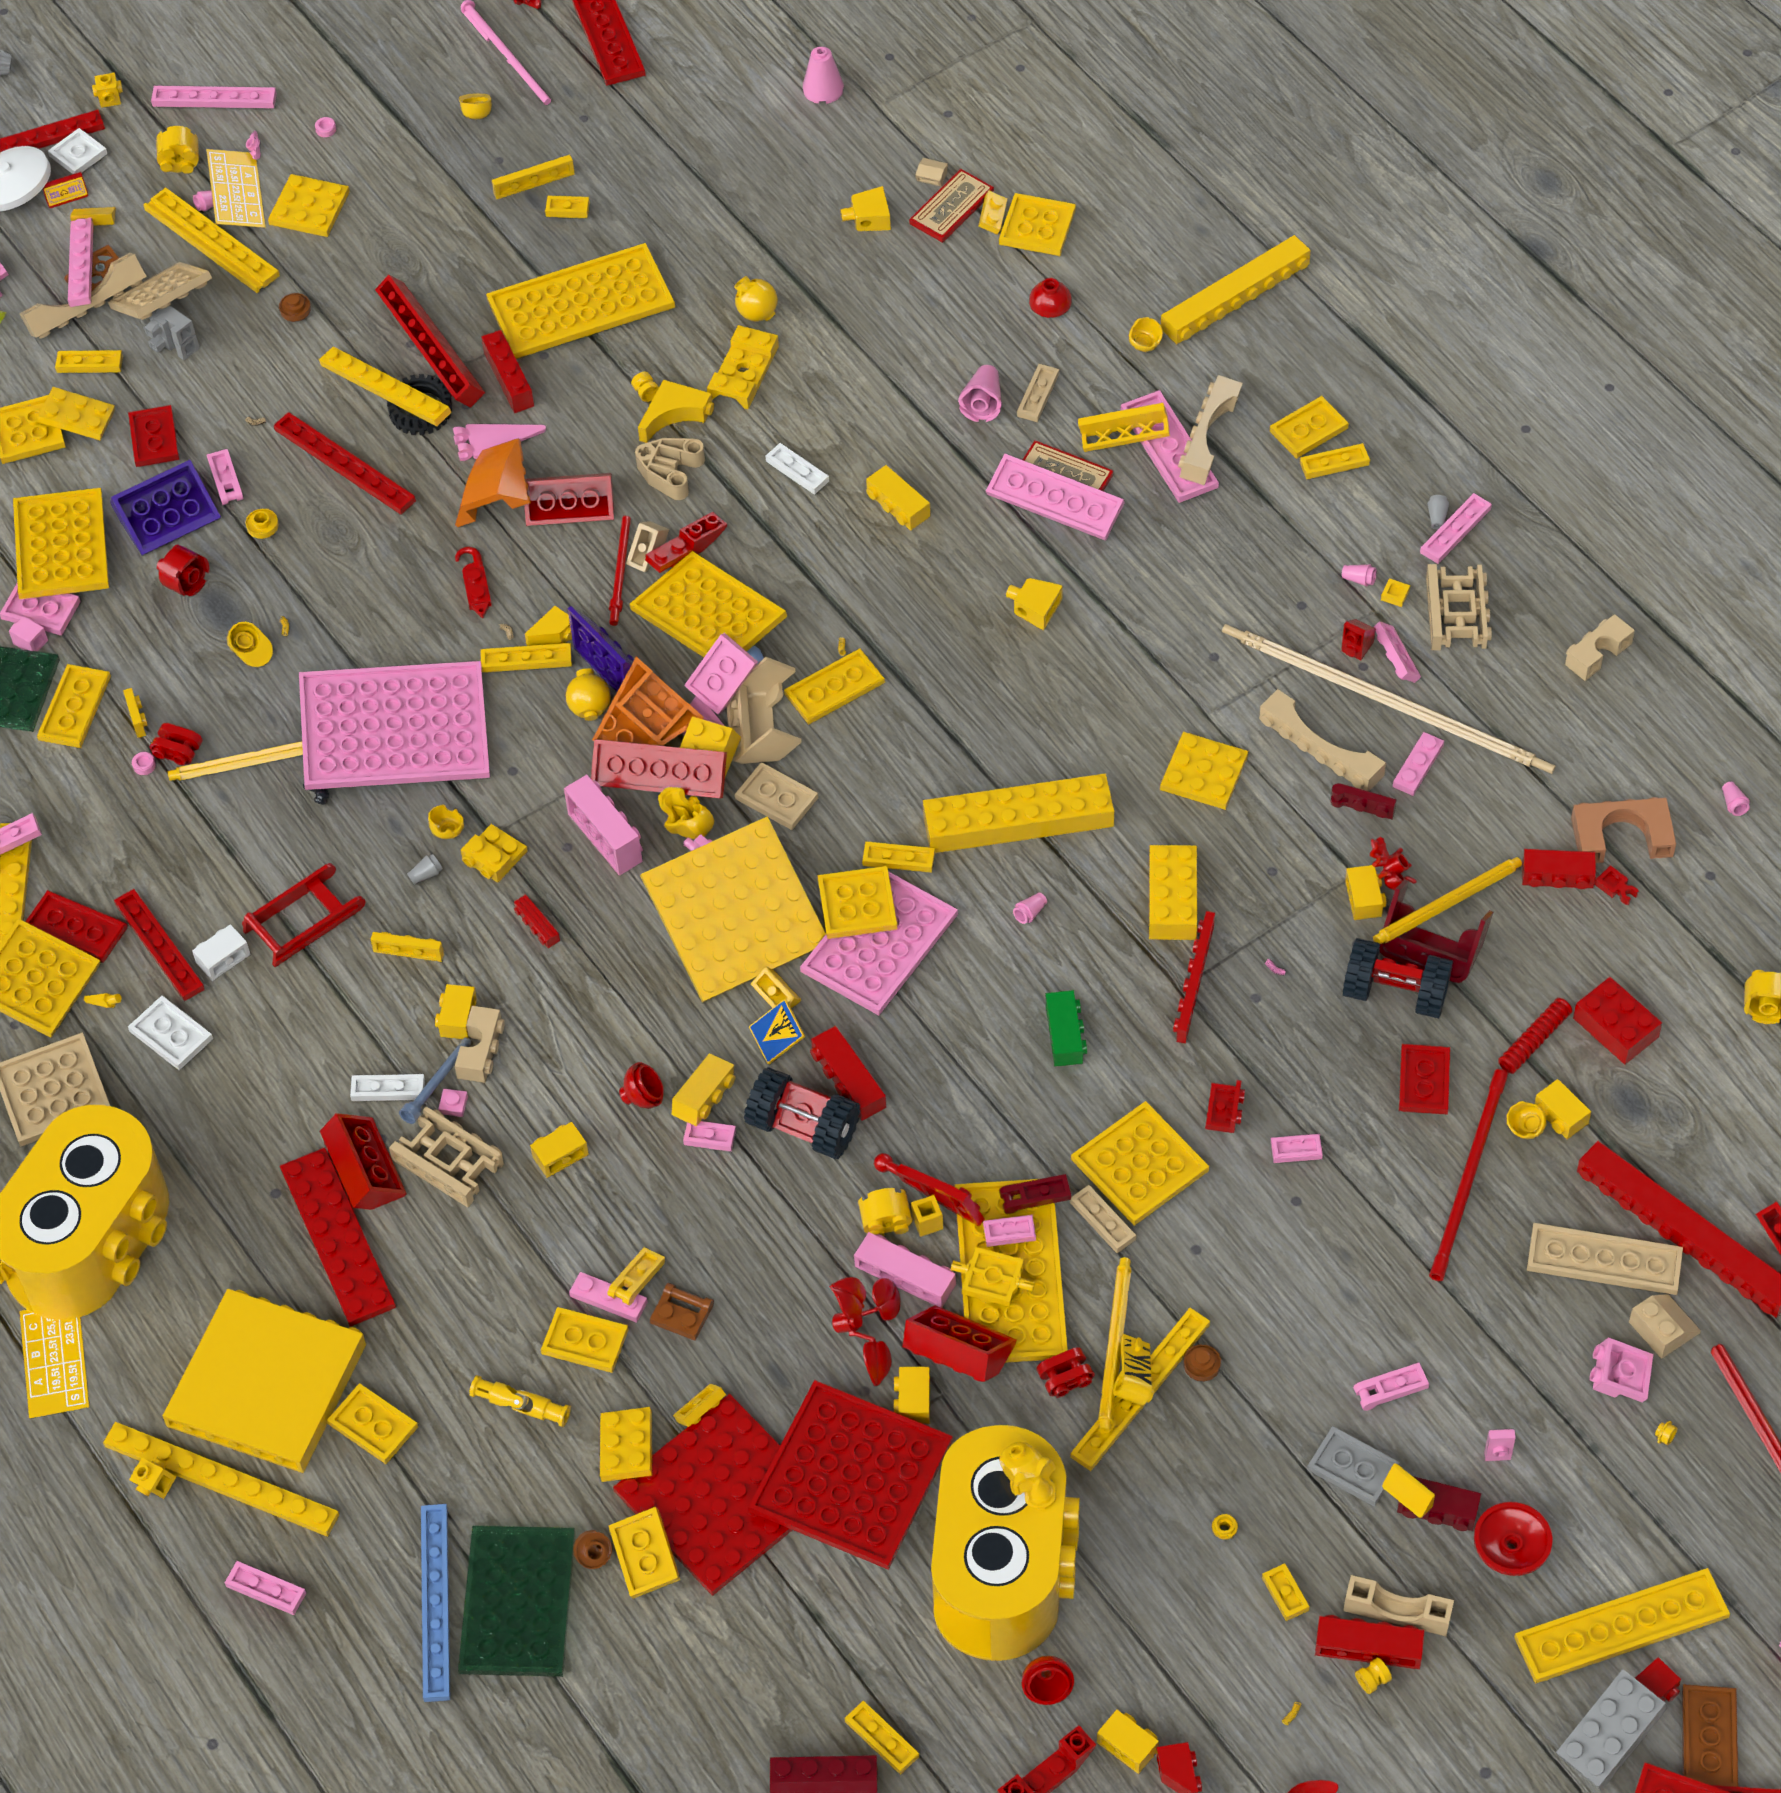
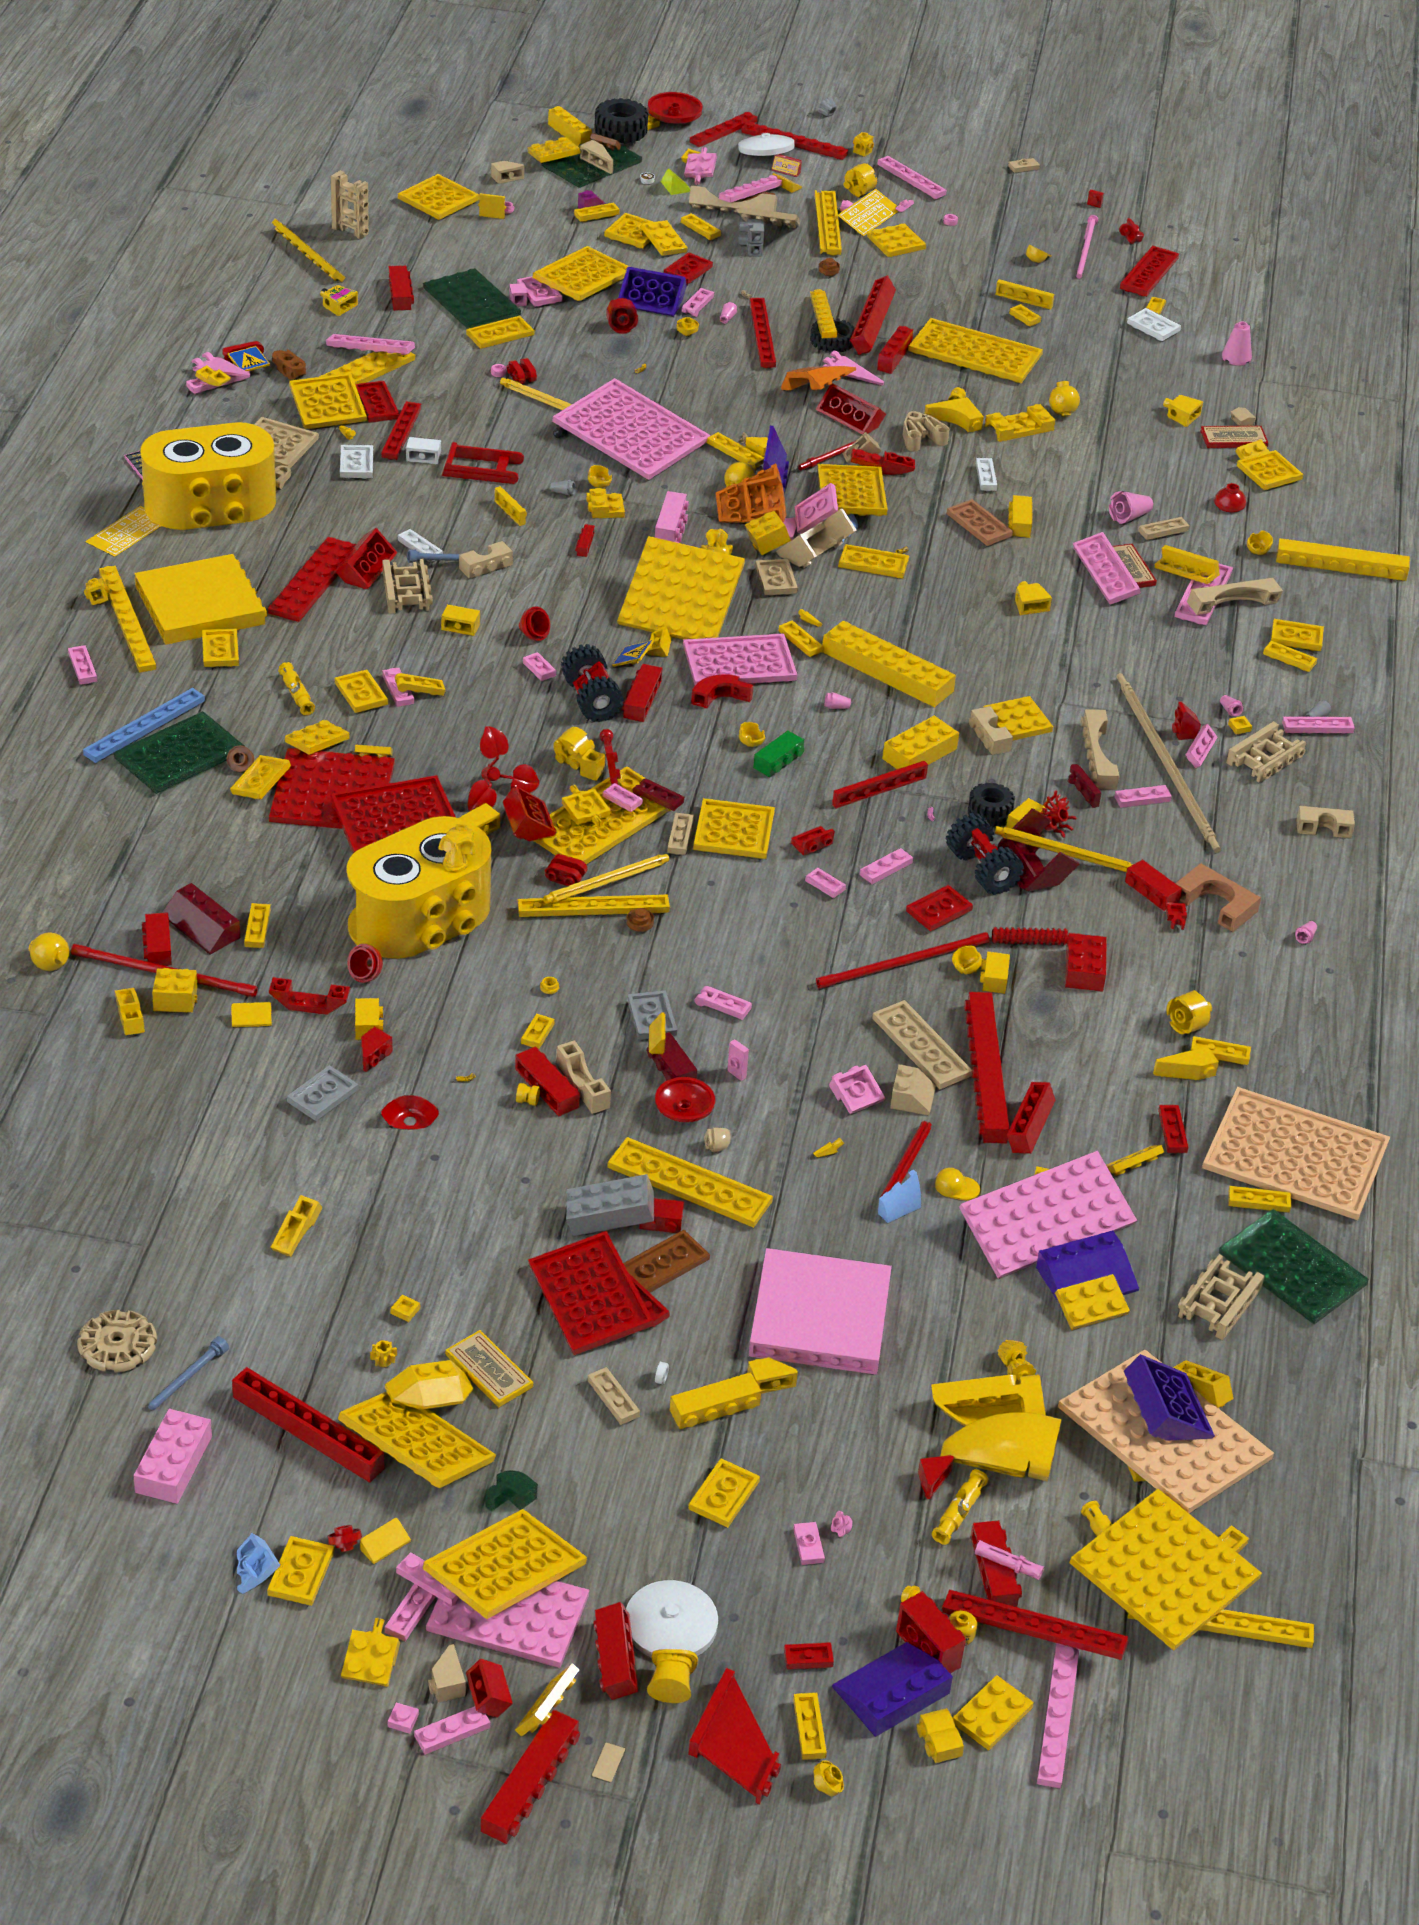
camera: 40 degrees right, 15 degrees down
(77, 152) = (814, 157): white plate -> none
(138, 719) = (522, 348): yellow plate -> none
(249, 644) = (612, 360): yellow cap -> none
(275, 465) = (728, 311): none -> bright pink cone
(453, 1102) = (441, 573): bright pink plate -> none
(455, 1011) = (492, 537): yellow brick -> none
(475, 581) = (757, 411): red plate -> none
(658, 767) = (722, 514): plate -> none
(670, 84) = (1156, 305): none -> yellow tile
(677, 1318) = (417, 719): dark orange plate -> none
(702, 111) = (1153, 324): none -> white plate
(703, 1090) = (556, 644): yellow brick -> none
(857, 902) = (748, 634): yellow plate -> none
(869, 541) = (979, 522): none -> nougat plate
(869, 821) = (808, 618): none -> yellow bar
(907, 992) = (720, 686): none -> red arch
(907, 1270) = (551, 776): bright pink brick -> none
(1013, 1029) = (750, 734): none -> yellow hair
(1135, 1379) = (590, 889): yellow door -> none
(1220, 819) = (984, 724): none -> tan arch
(1317, 1072) = (886, 866): none -> bright pink plate
(1326, 892) = (992, 802): none -> black tyre
(1586, 1554) = (717, 1139): none -> tan piece
(1666, 1432) = (841, 1131): yellow plate -> none
(1677, 1461) = (829, 1148): none -> yellow bar

